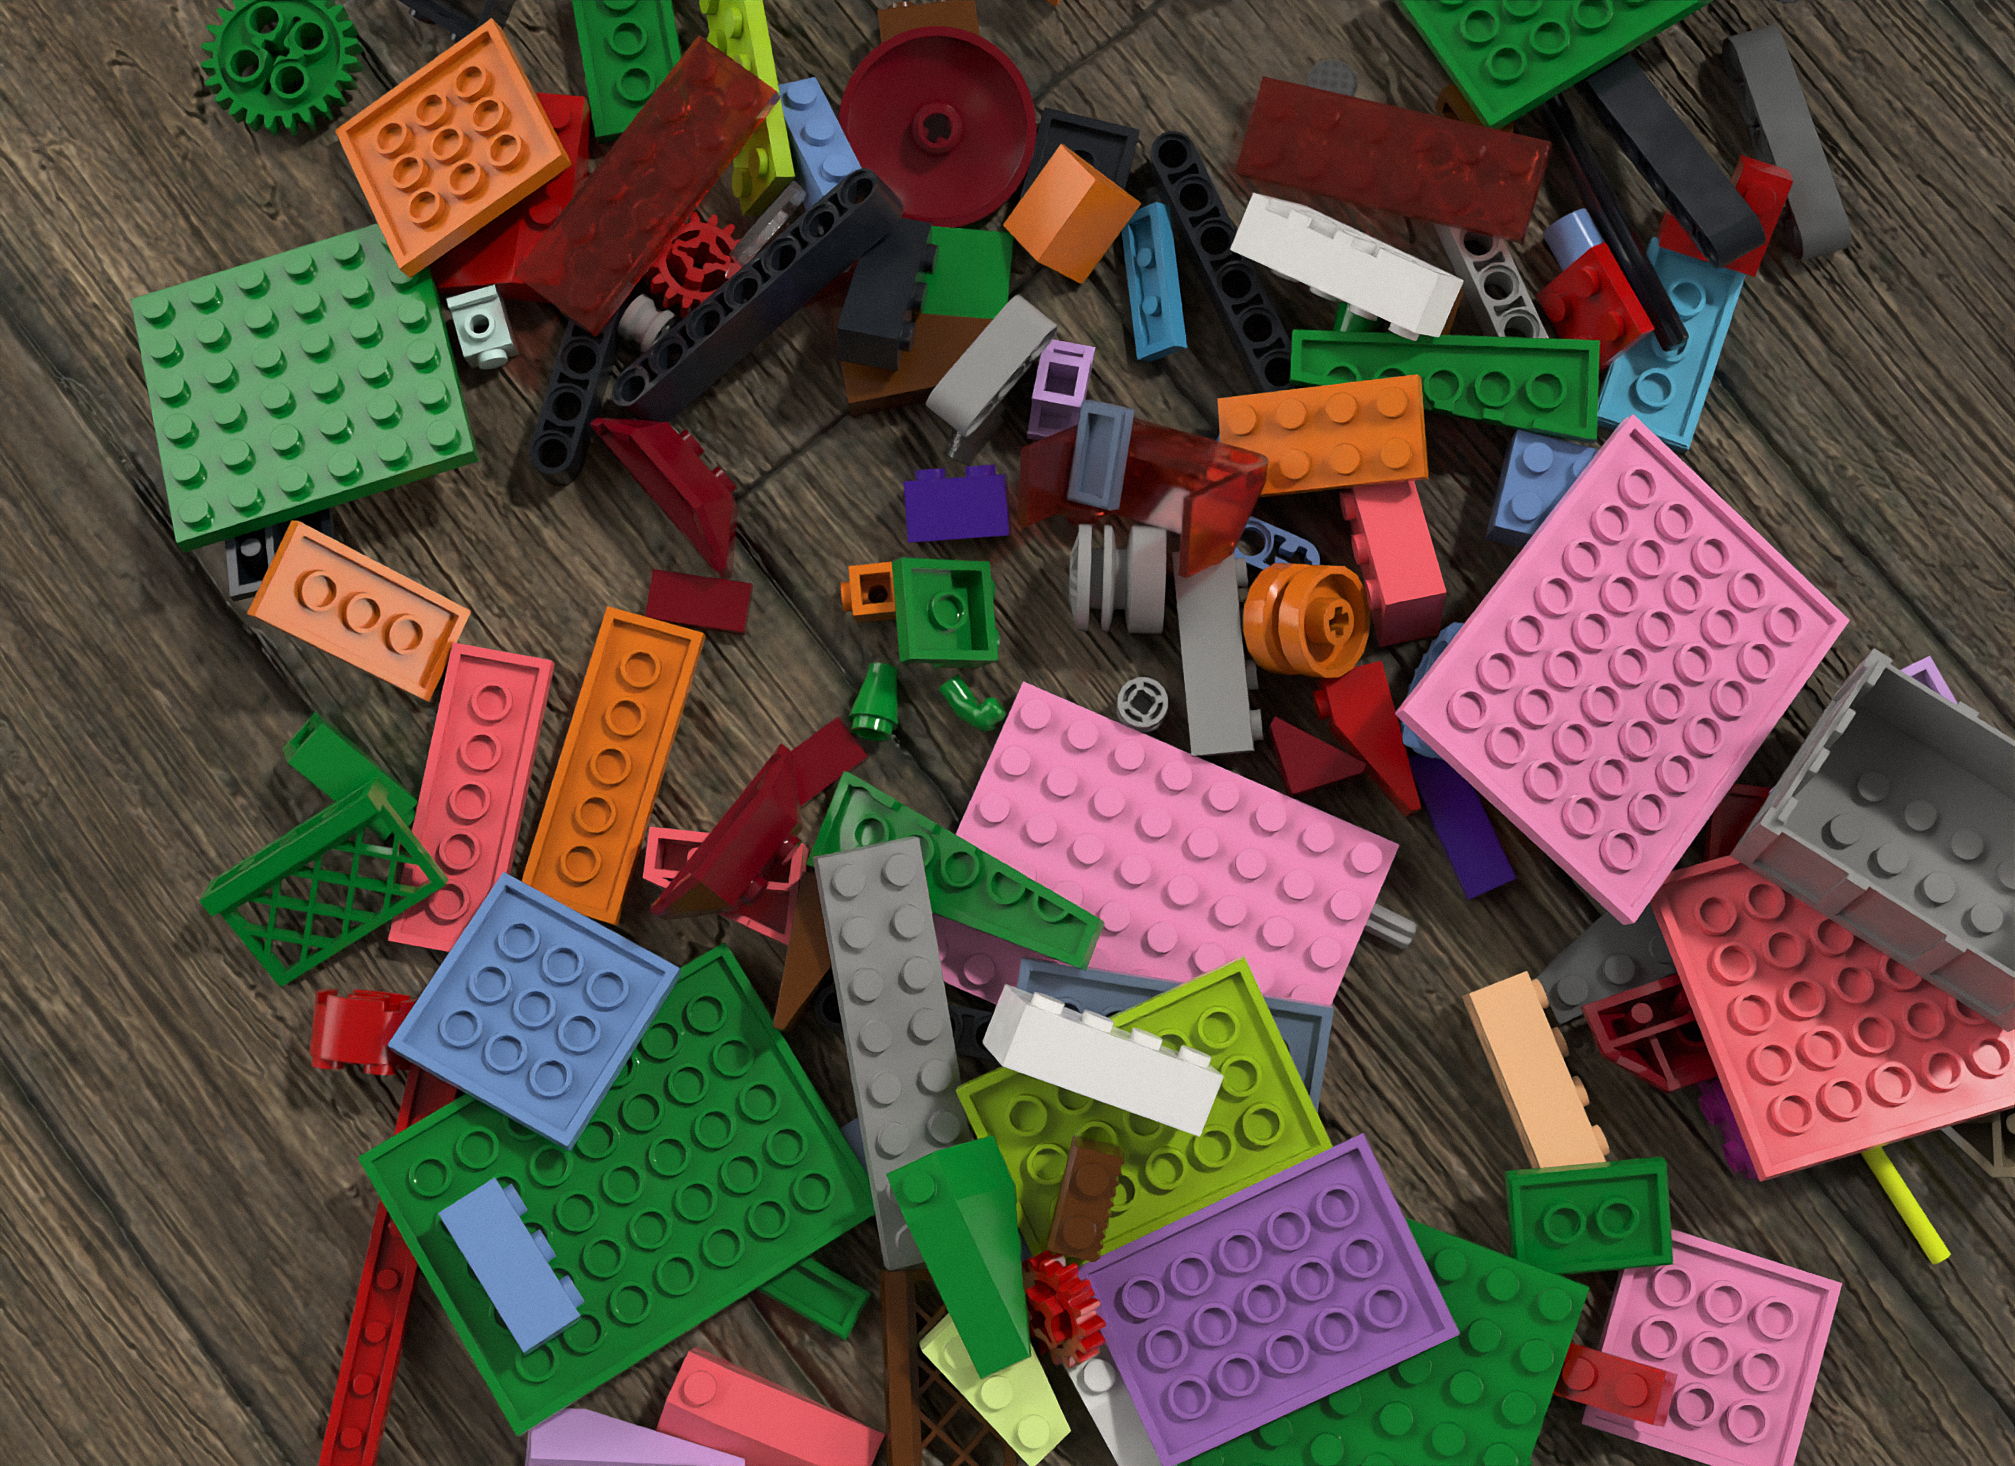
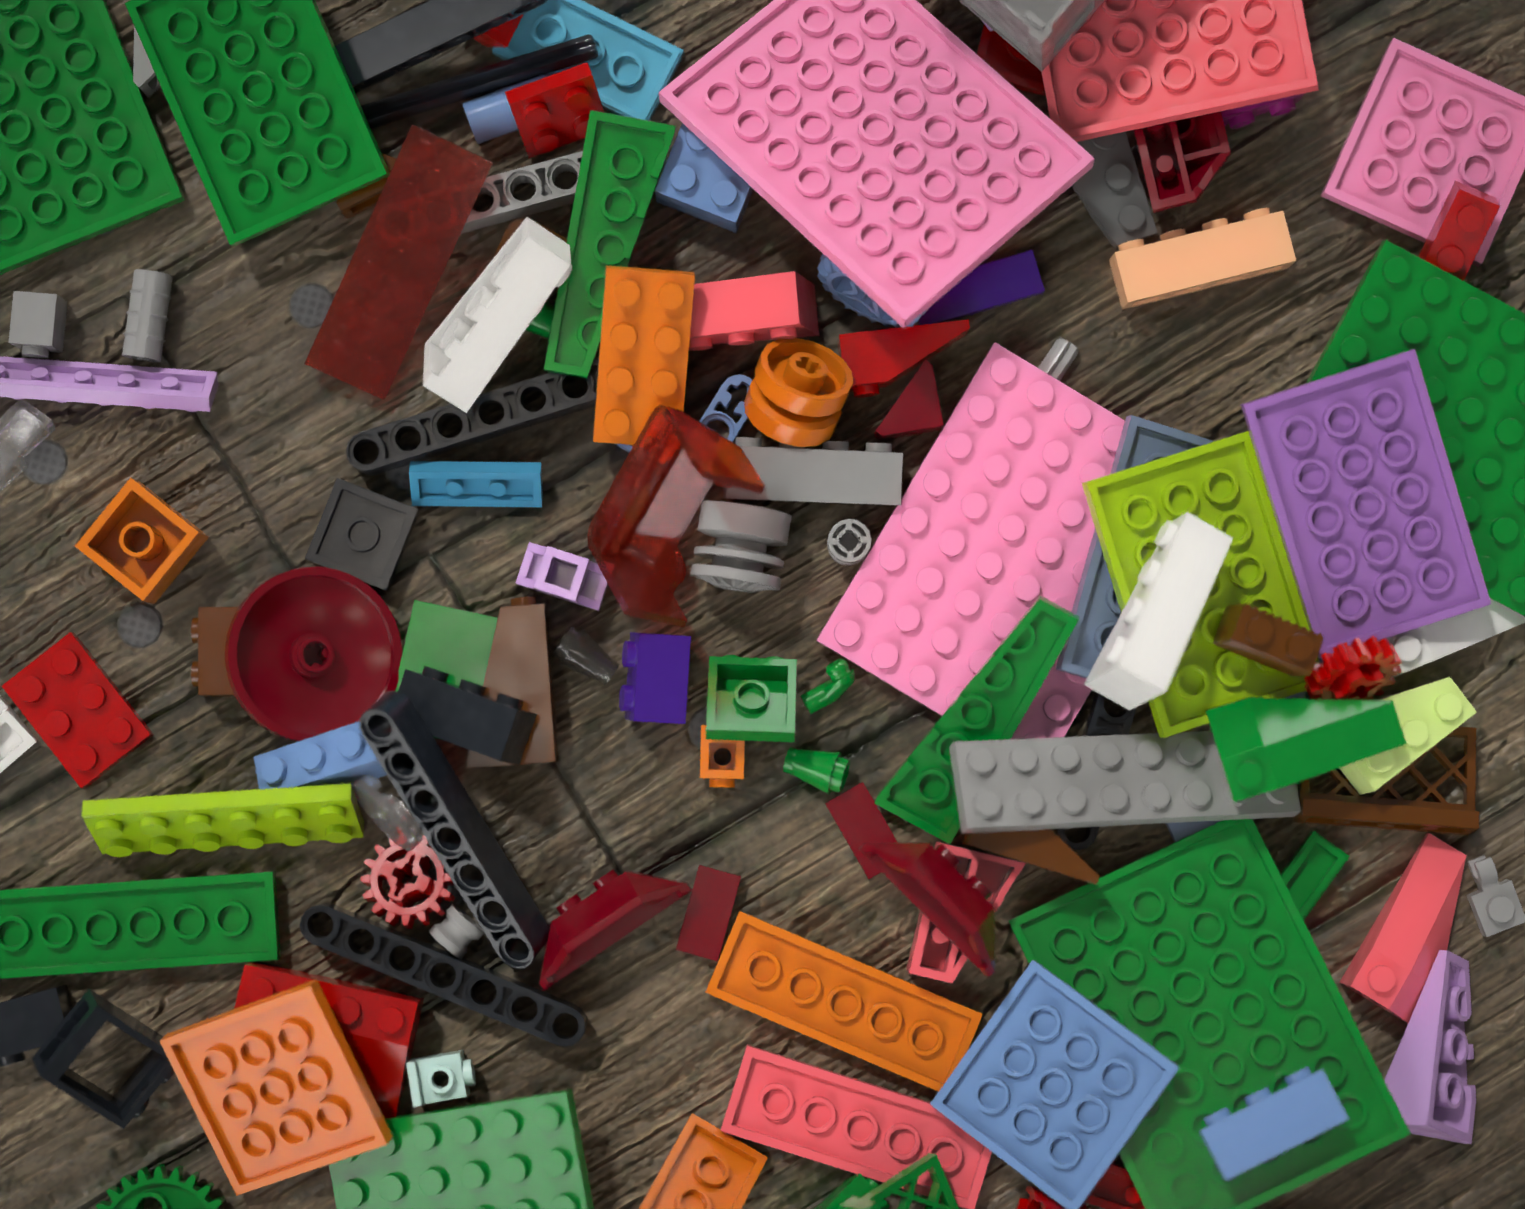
camera: 90 degrees left, 5 degrees up
(647, 185) = (342, 914): clear red plate -> none
(992, 365) = (542, 631): light grey beam -> none
(1070, 215) = (409, 548): orange slope -> none
(1100, 454) = (630, 548): sand blue tile -> none
(1590, 1216) = (1321, 231): green tile -> none

